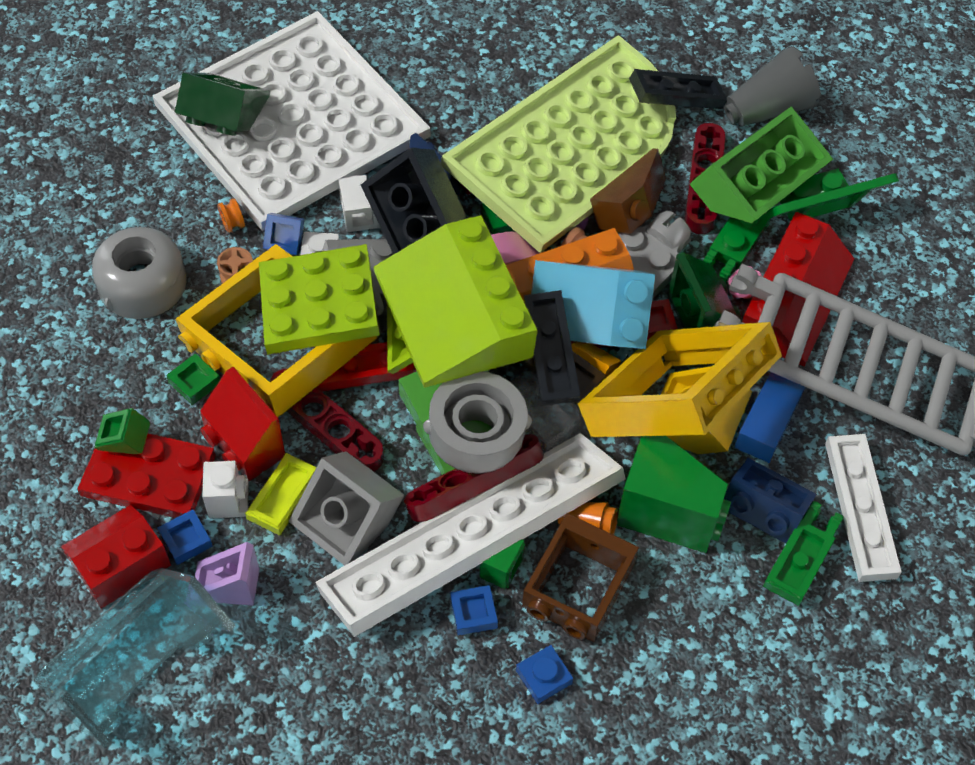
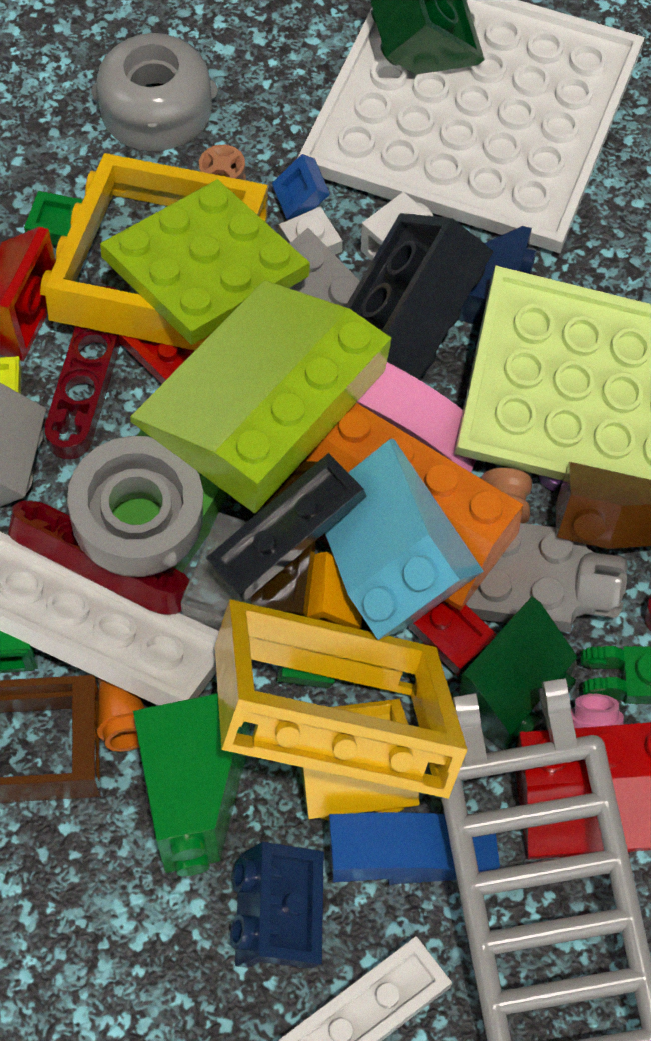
camera: 60 degrees right, 5 degrees up
(231, 215) = (290, 127): orange bush -> none
(802, 556) = (222, 990): green hinge -> none

